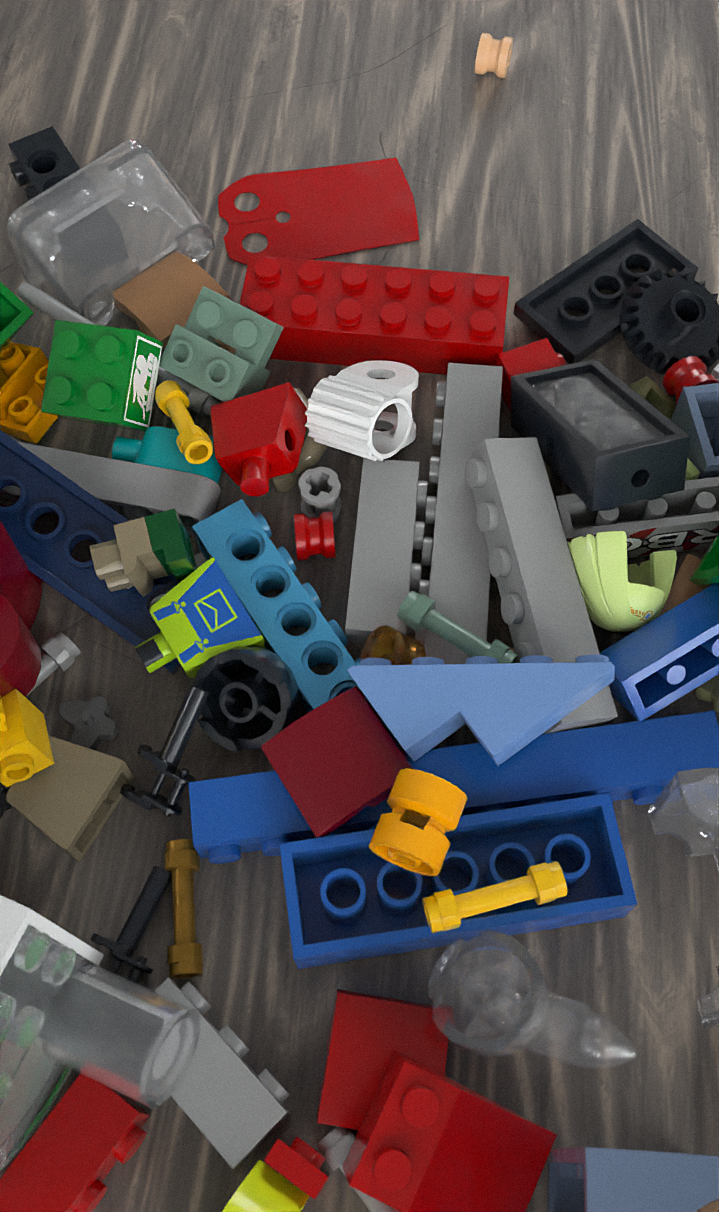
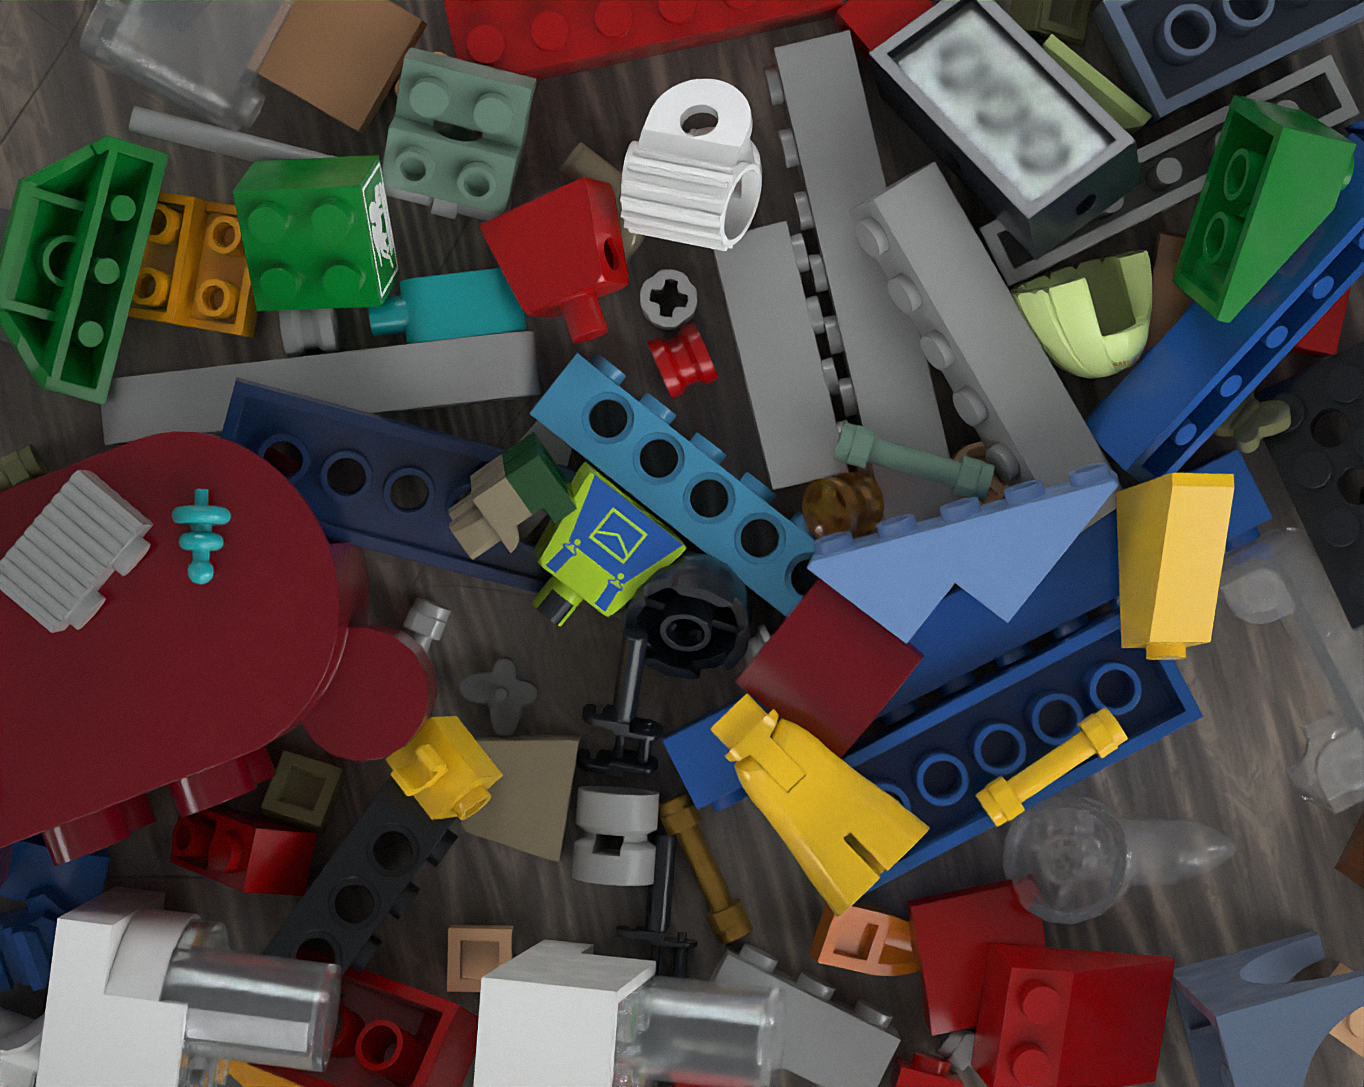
camera: 25 degrees left, 25 degrees up
(74, 437) = (310, 331): none -> light grey wheel
(123, 850) = (615, 812): none -> light grey wheel
(191, 439) = (487, 299): yellow bar -> none
(290, 1015) = (864, 941): none -> orange plate
(293, 872) = (820, 806): none -> yellow piece
(428, 804) = (947, 698): light orange wheel -> none
(644, 752) = (1171, 560): none -> yellow slope

